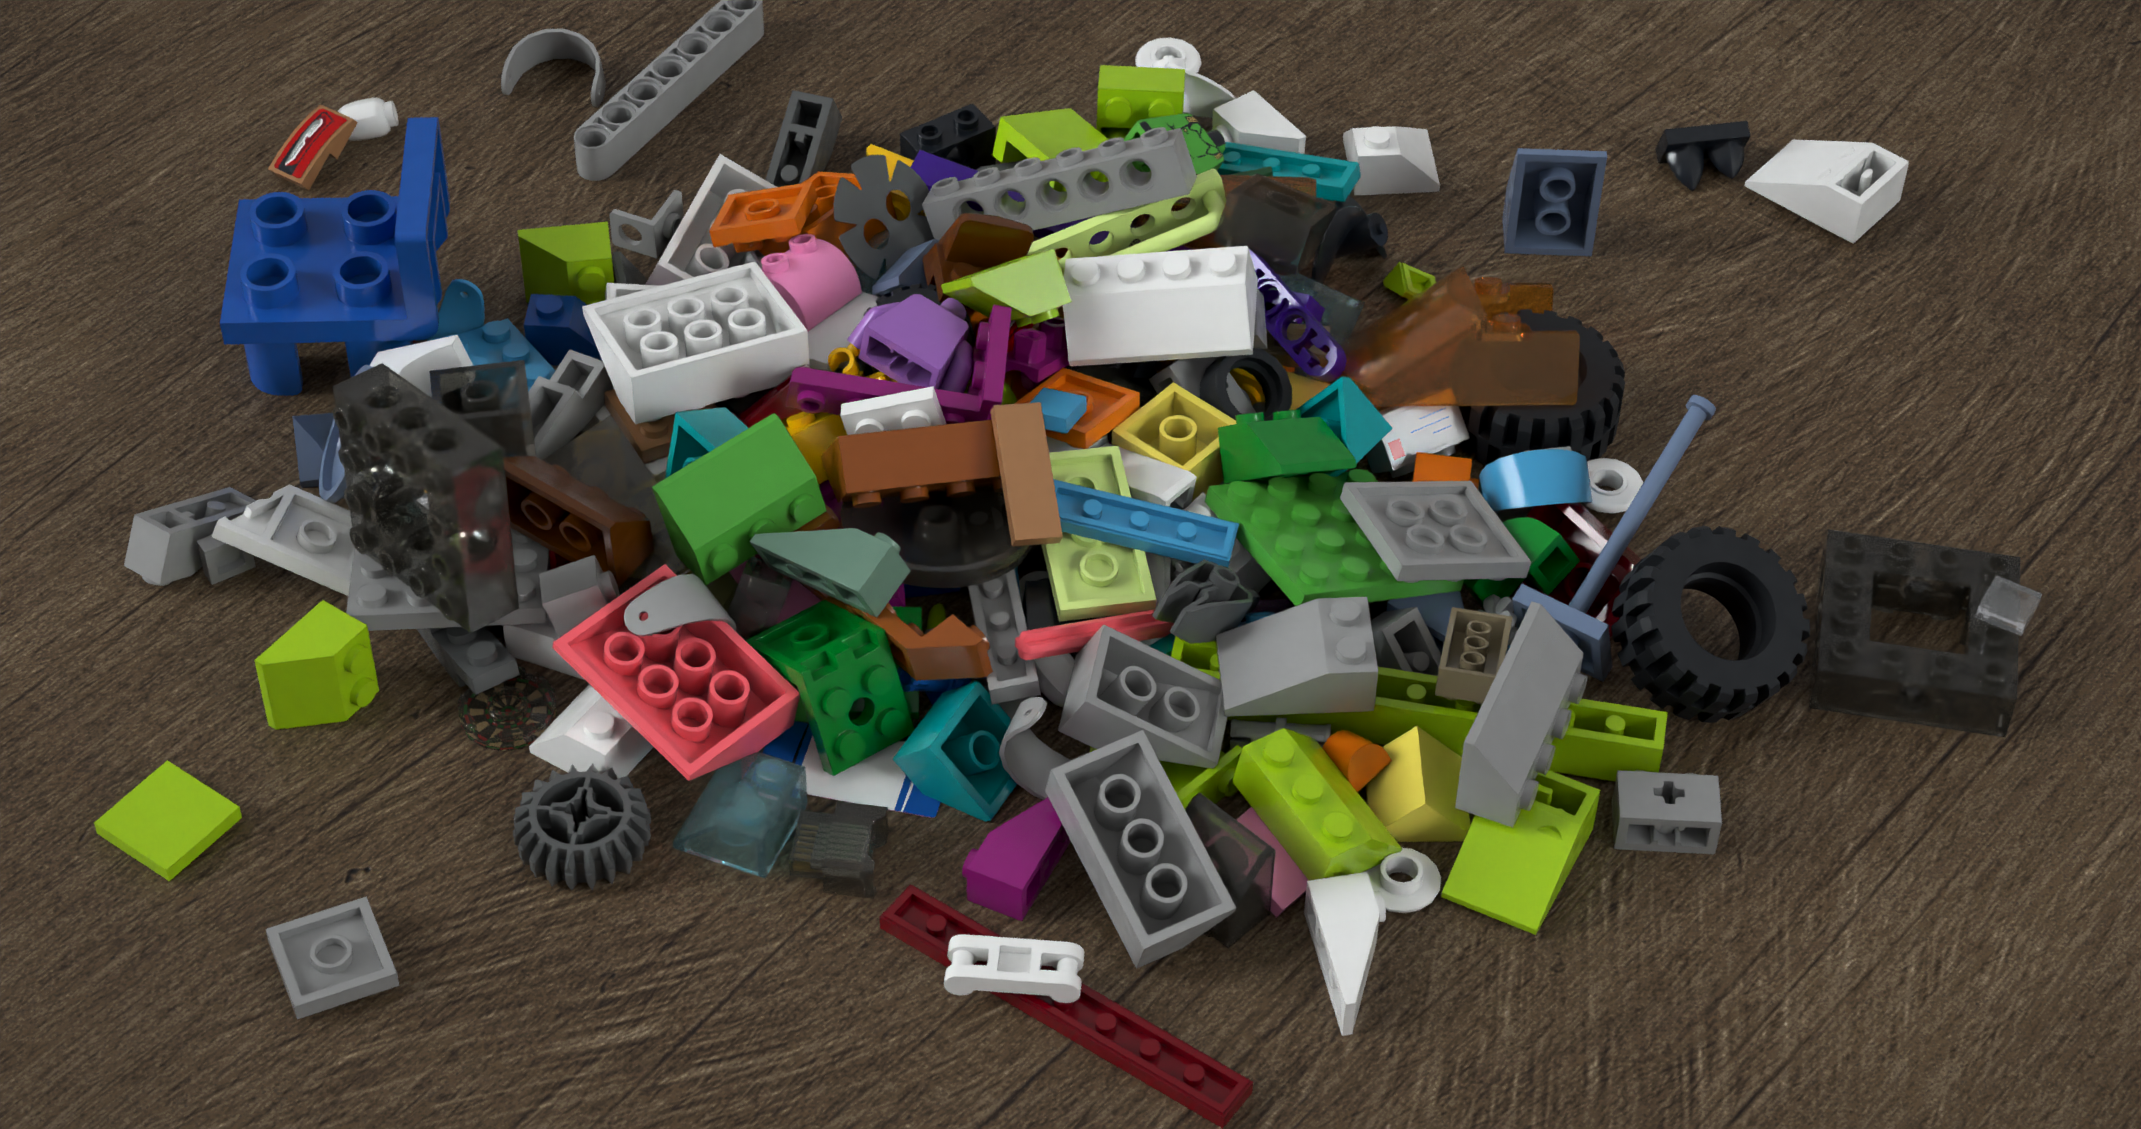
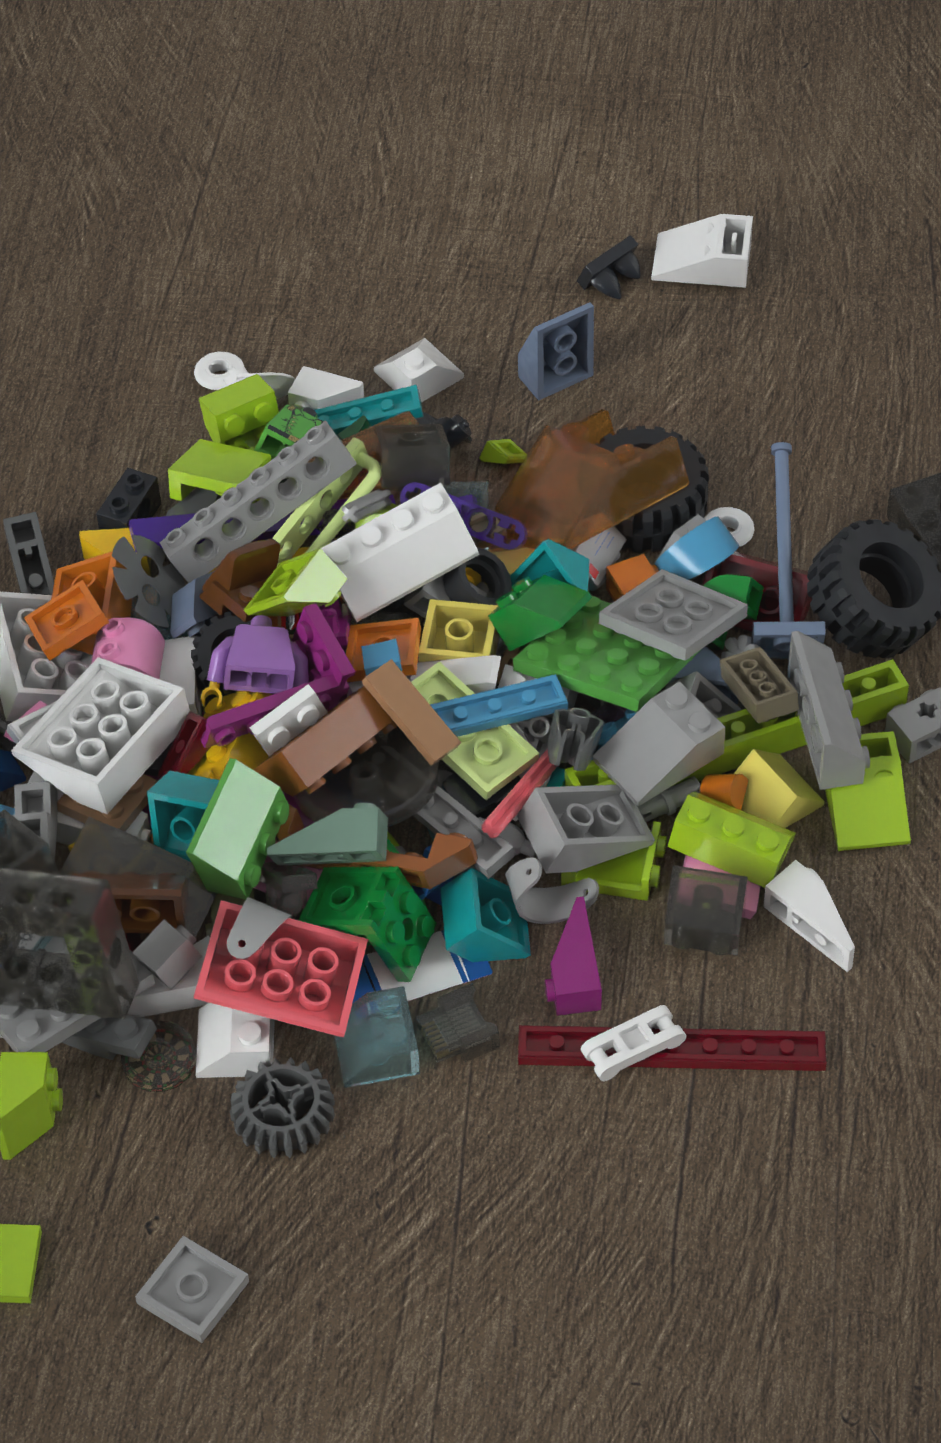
camera: 30 degrees left, 5 degrees up
(1139, 848) = (657, 922): light grey slope -> none
(1150, 240) = (366, 505): none -> light grey axle
(1410, 895) = (824, 849): white piece -> none

